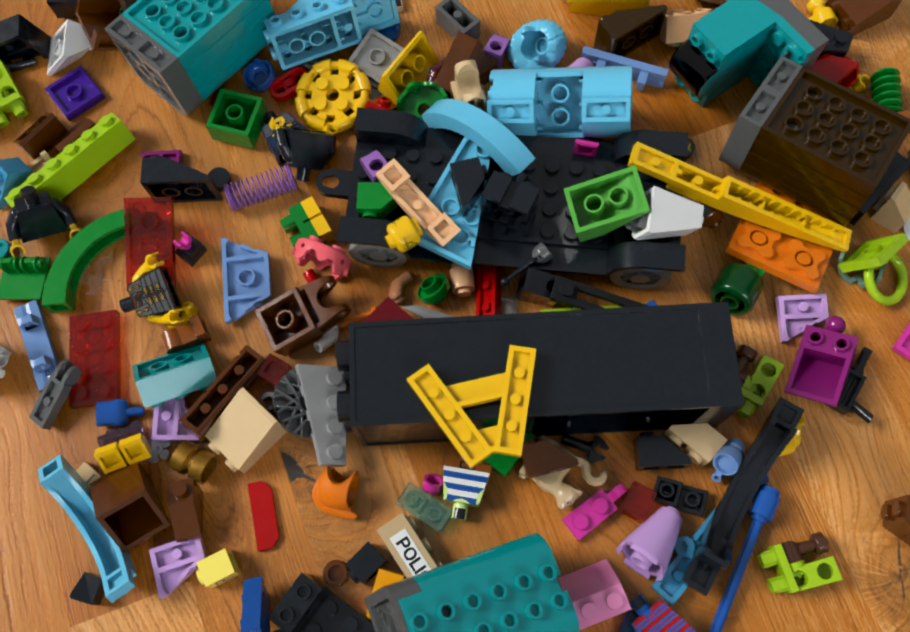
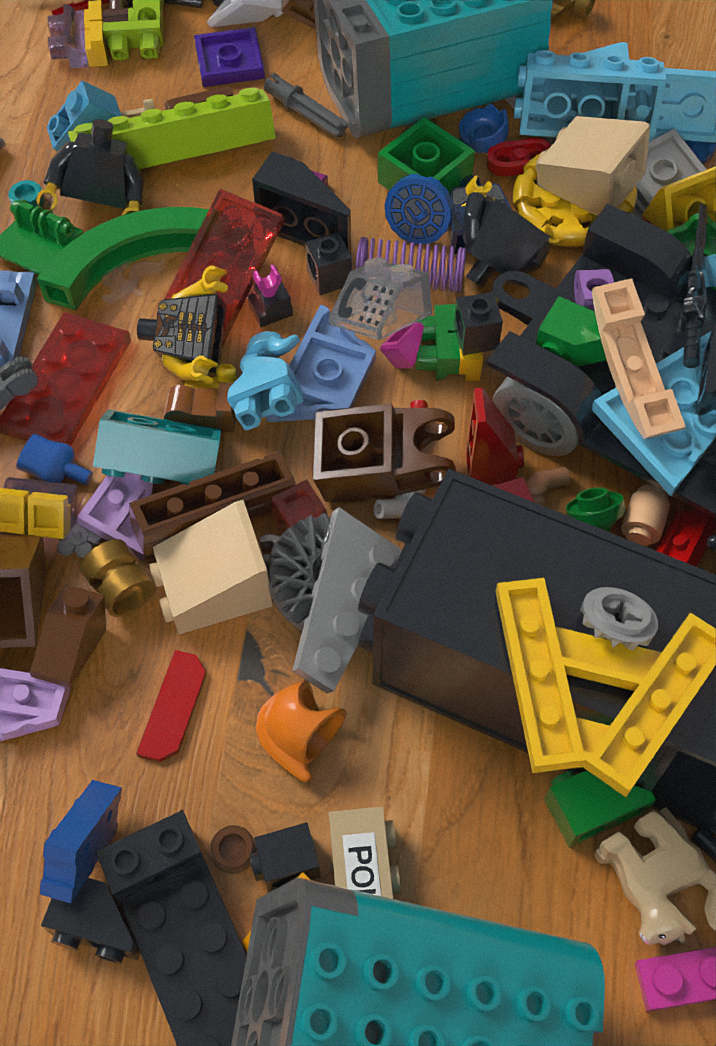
camera: 25 degrees right, 10 degrees down
(41, 135) = (157, 83): reddish brown slope -> none
(141, 107) = (296, 100): none -> dark grey axle
(212, 209) = (328, 262): none -> black brick
(215, 305) = (266, 380): none -> medium azure hips
(217, 568) = (65, 745): light yellow brick -> none
(220, 177) = (361, 227): black tile -> none
(248, 150) = (419, 209): none -> tile
(256, 222) = (382, 299): none -> clear slope
(281, 240) = (403, 346): none -> dark pink slope
(318, 212) = (477, 323): none -> black brick
(322, 256) = (449, 379): coral plate -> none
(336, 75) = (595, 162): none -> tan slope
(361, 280) = (491, 443): none -> red slope
(403, 234) = (593, 393): yellow head -> none
(425, 508) = (421, 824): clear light blue slope -> none
(432, 483) = (451, 792): dark pink hinge -> none
(433, 146) = (696, 300): none -> black sword
(464, 486) = (501, 820): torso -> none
(483, 358) = (637, 617): none -> light grey gear
(544, 458) = (657, 840): reddish brown slope -> none

